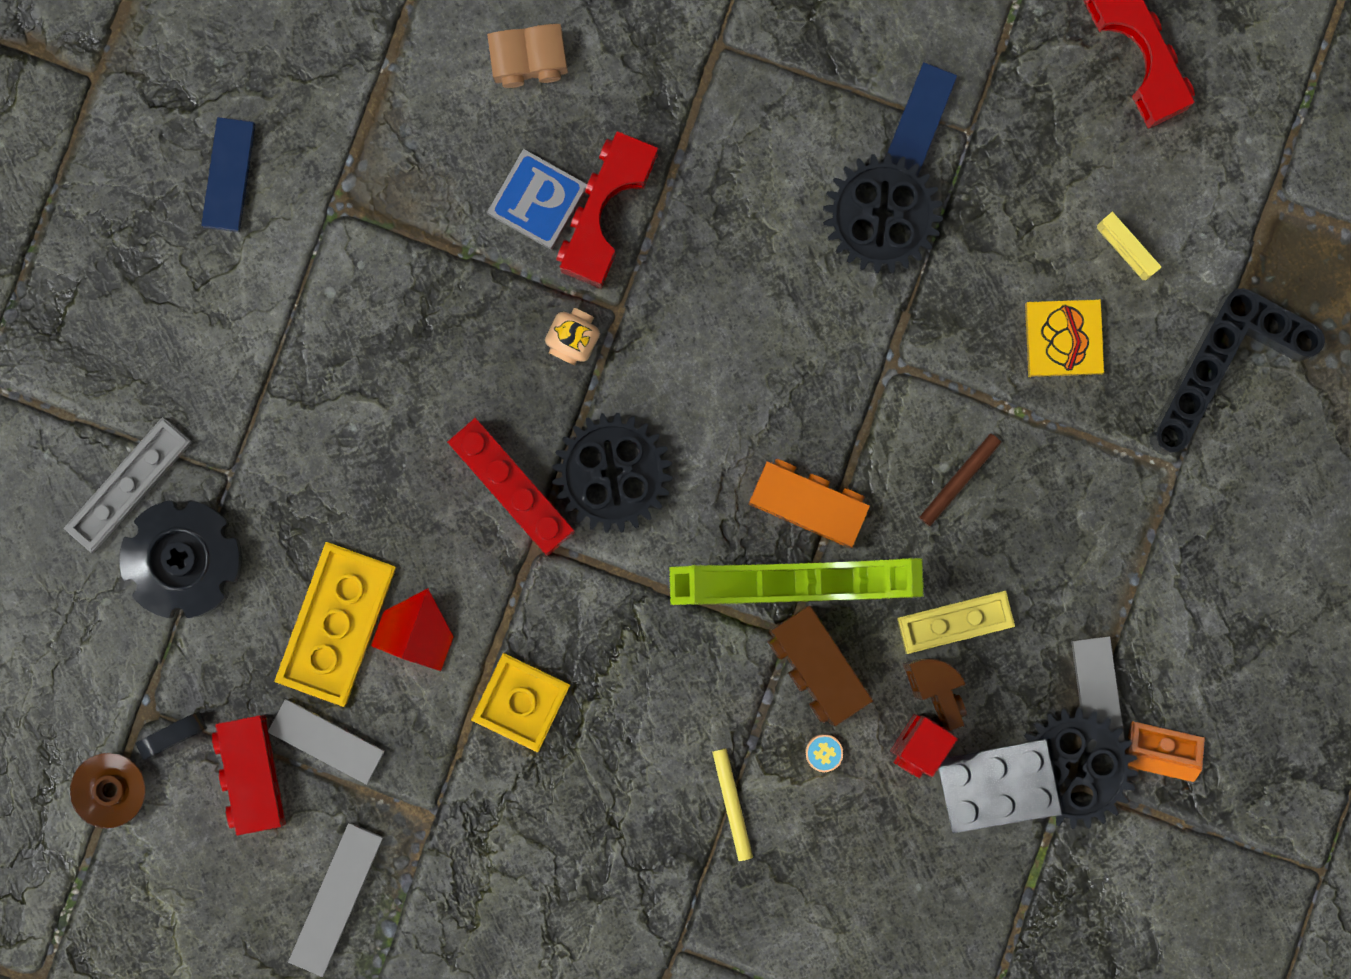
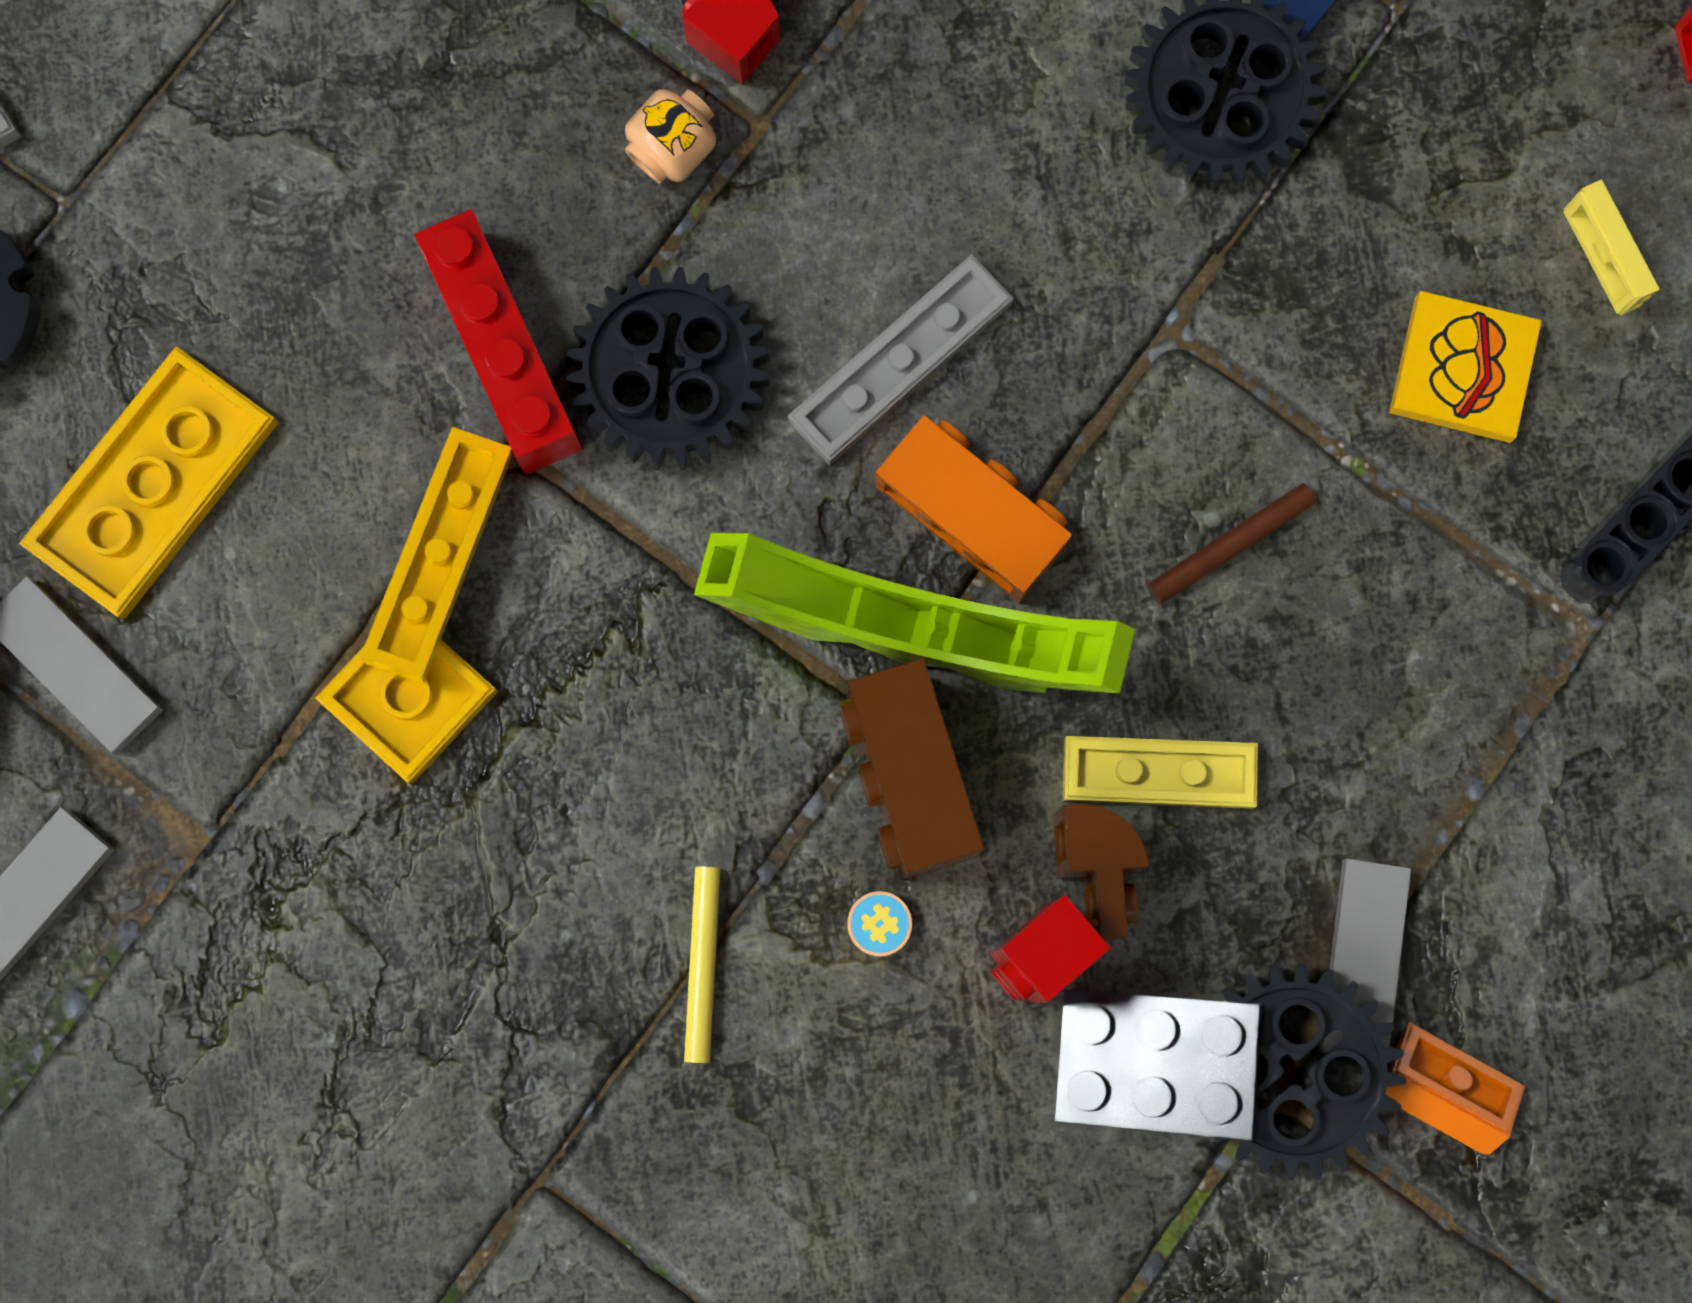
camera: 20 degrees right, 5 degrees down
(415, 631) = (273, 530): red slope -> none
(515, 619) = (437, 555): none -> yellow plate
(741, 427) = (900, 359): none -> light grey tile

